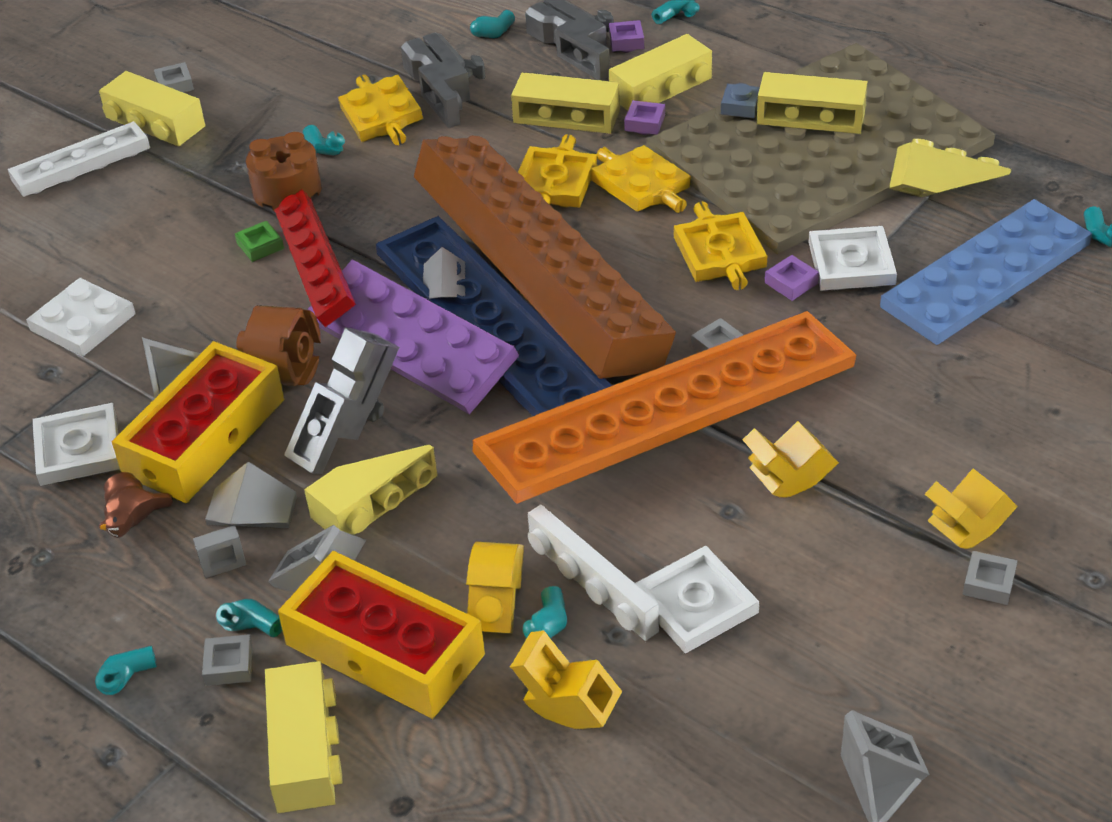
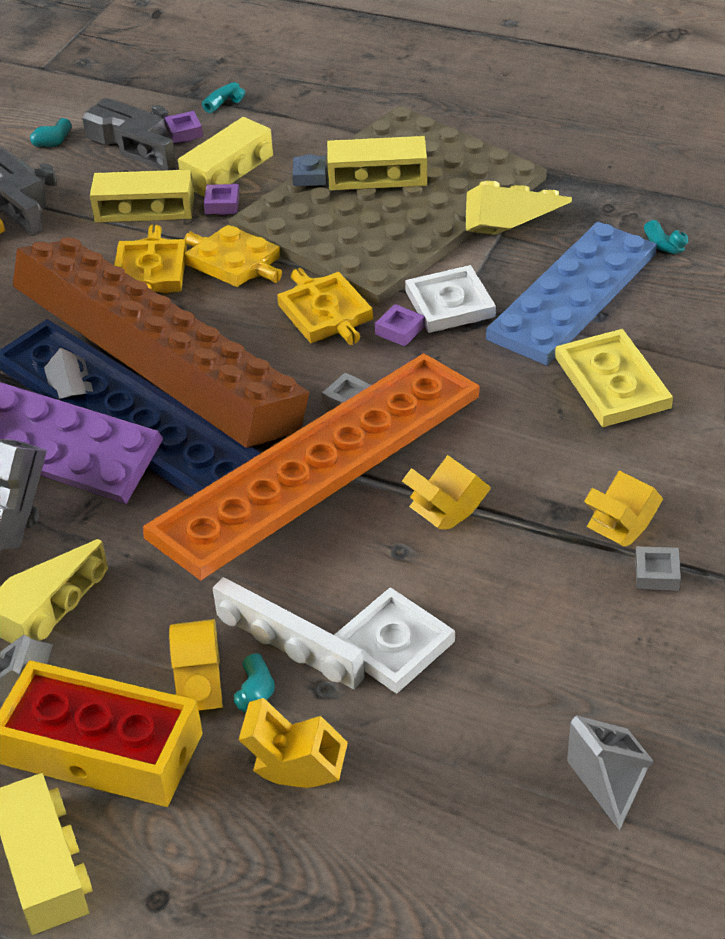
camera: 15 degrees left, 0 degrees up
(1002, 369) = (613, 377): none -> light yellow plate

